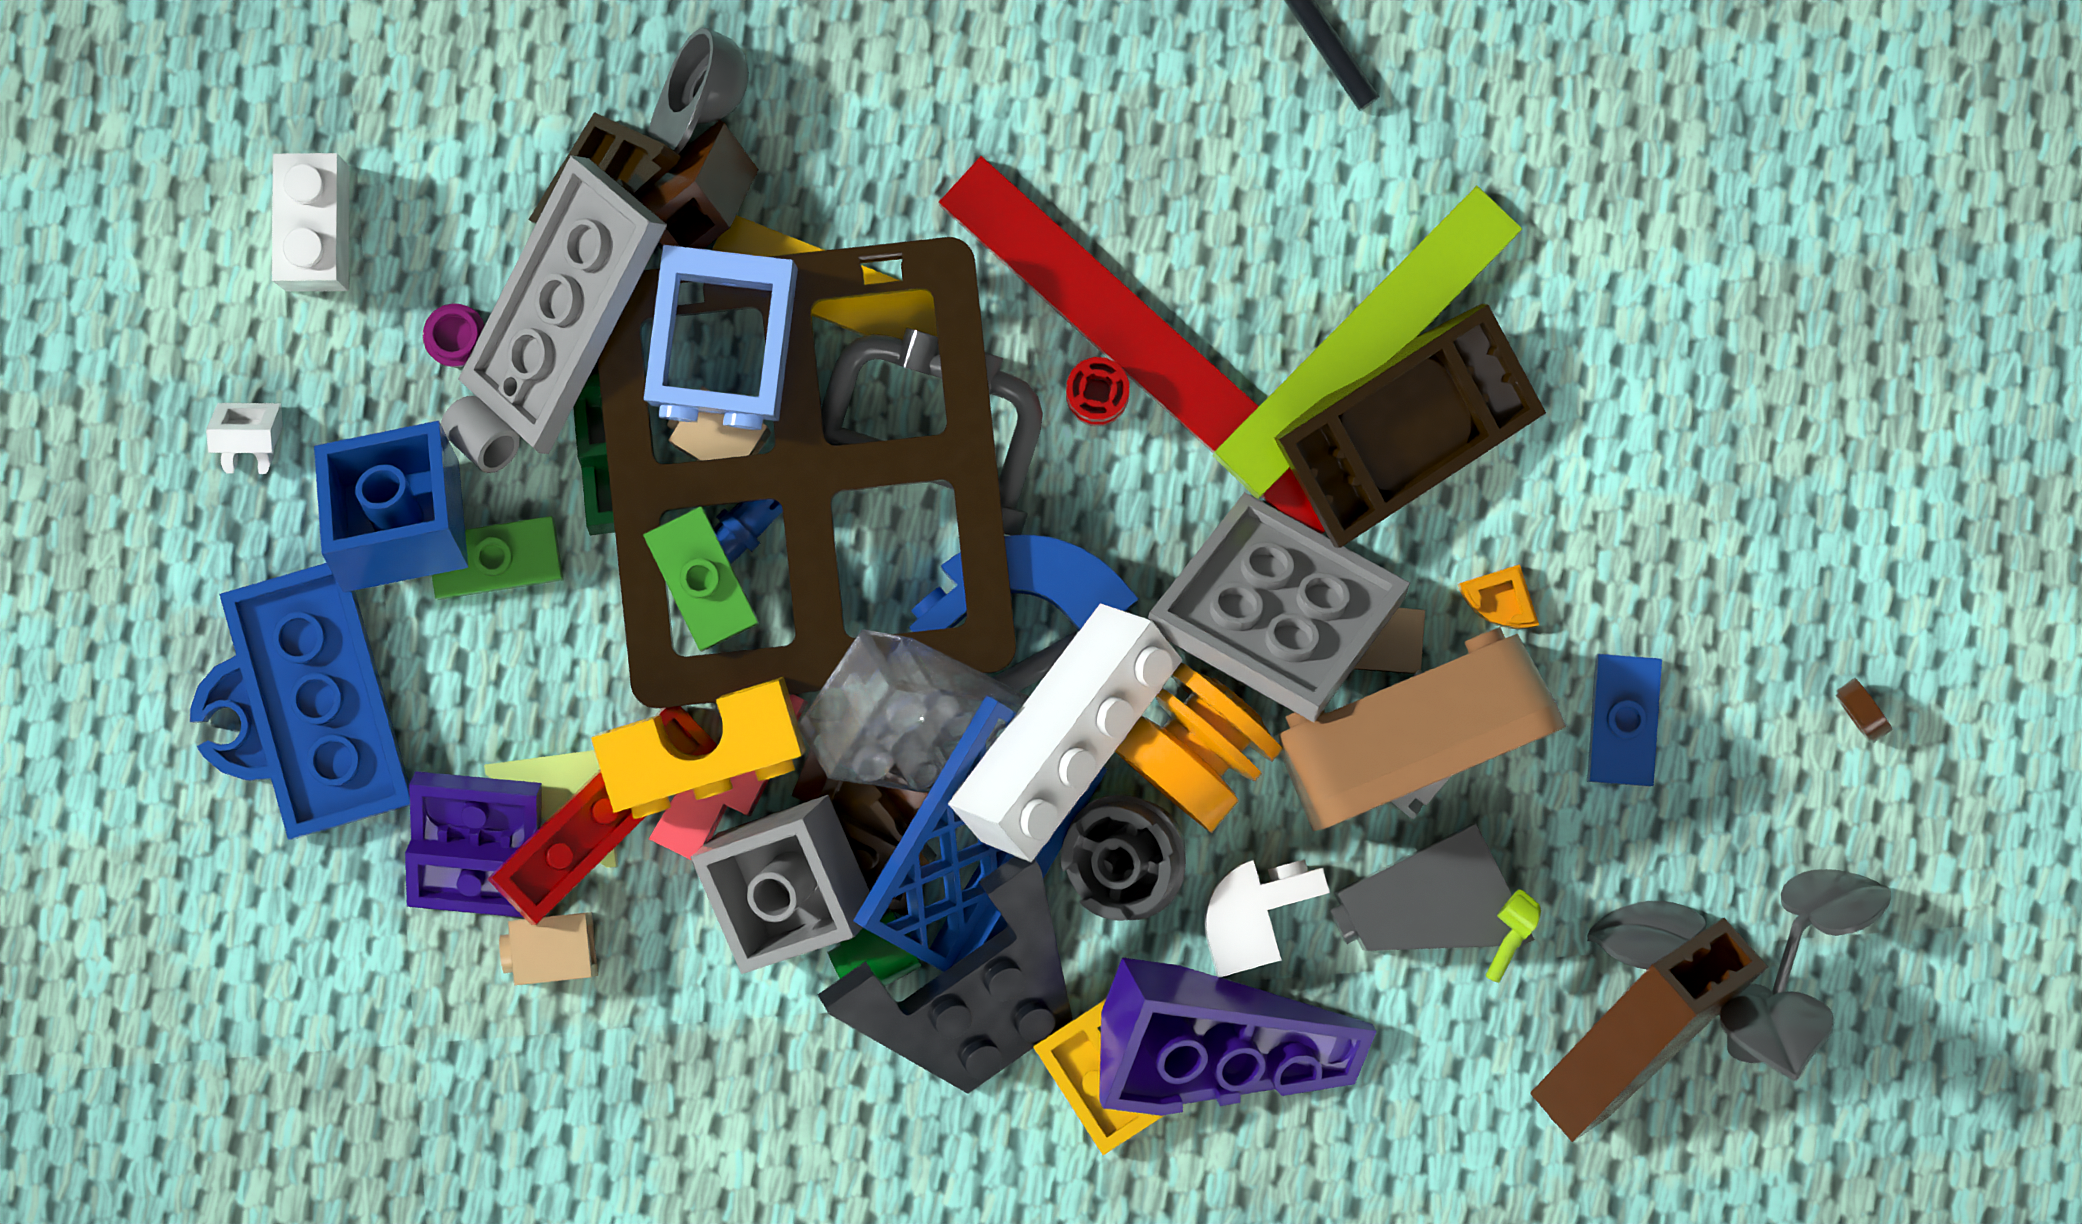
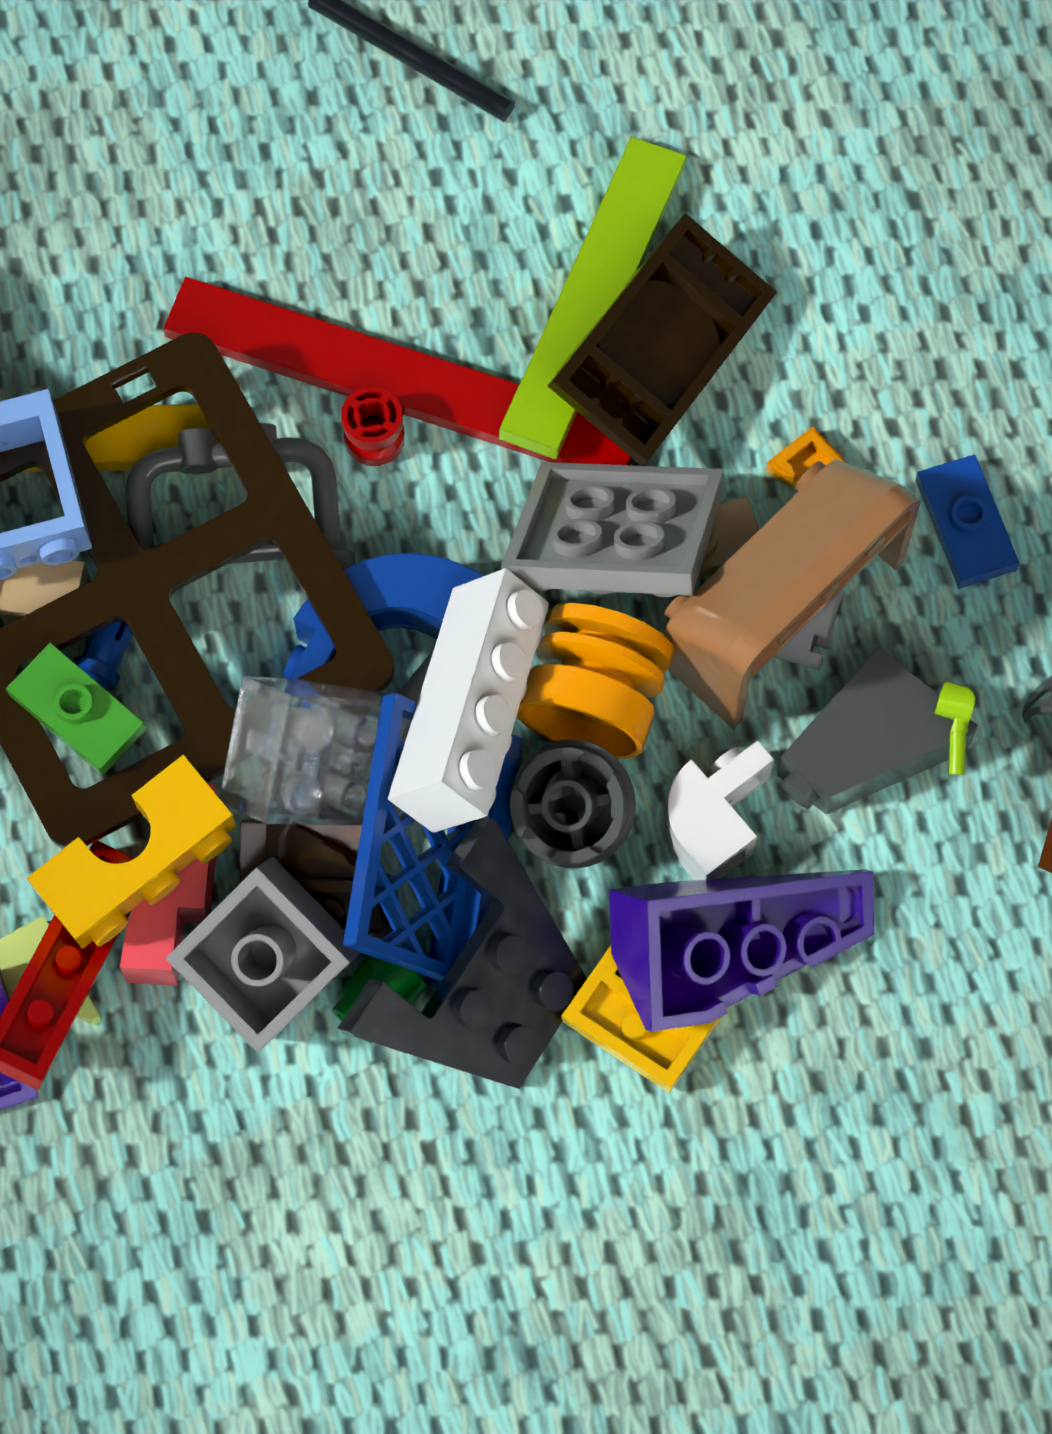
camera: 25 degrees left, 15 degrees down
(550, 950) = (65, 1115): tan brick -> none

